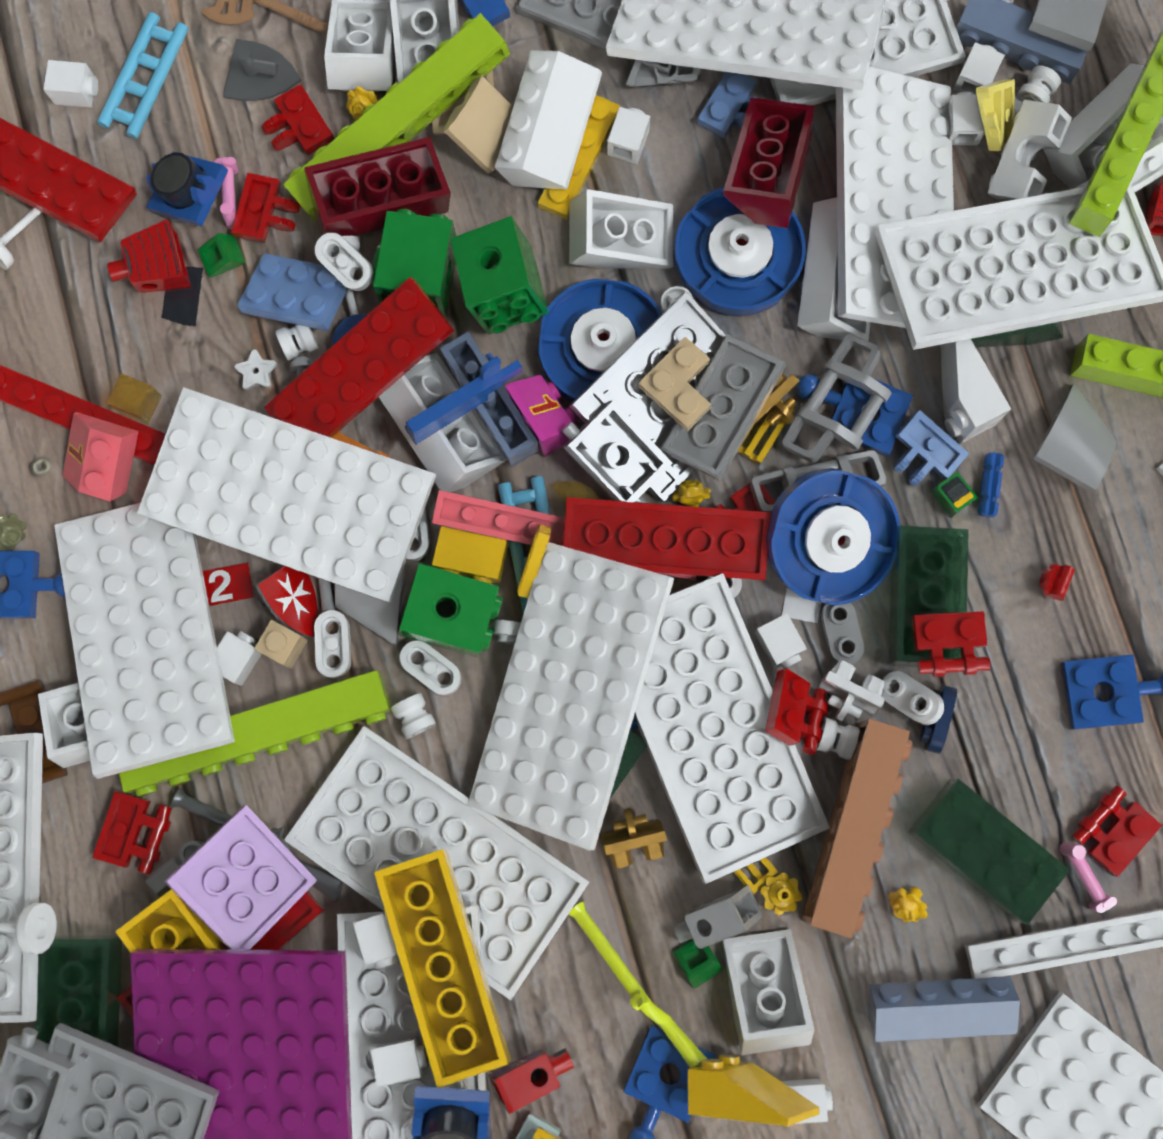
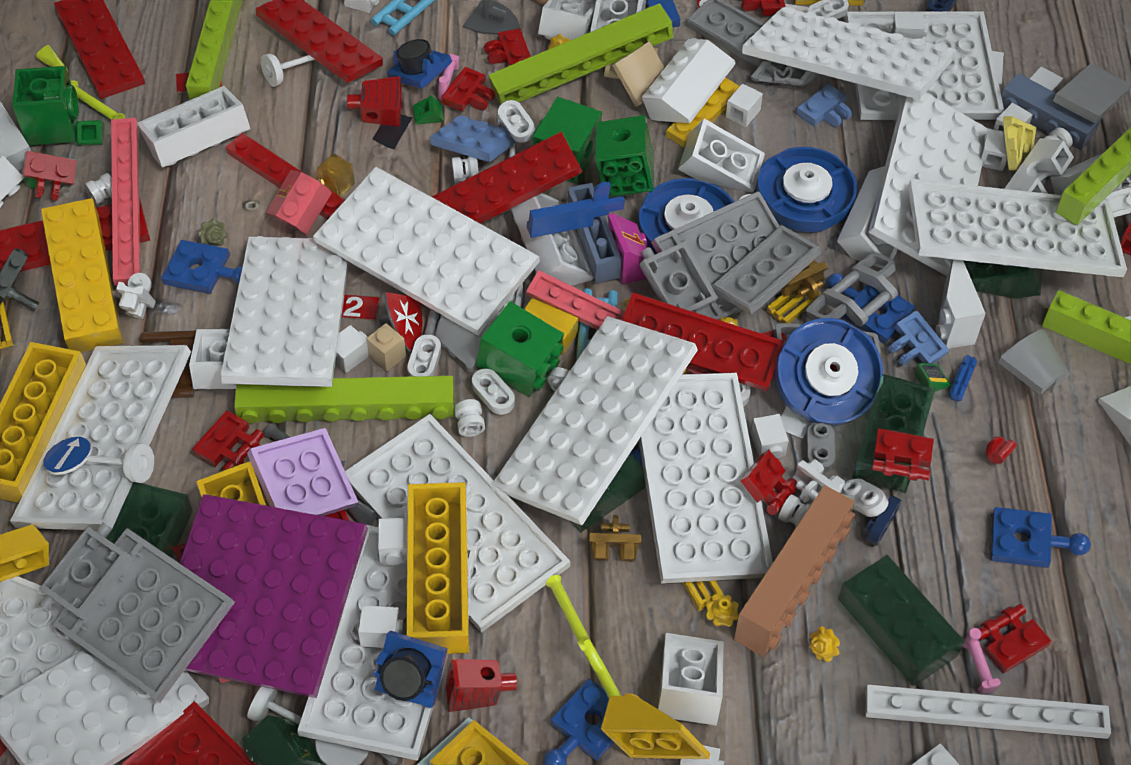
camera: 10 degrees right, 25 degrees down
(262, 378) = (429, 176): white plate -> none
(358, 190) = (539, 85): dark red slope -> none
(533, 560) = (594, 328): yellow tile -> none
(670, 387) = (732, 244): tan plate -> none
(697, 963) = (641, 646): green slope -> none
(719, 918) = (667, 607): light grey torso -> none
(769, 160) = (843, 134): dark red slope -> none
(943, 1009) = (835, 722): brick -> none

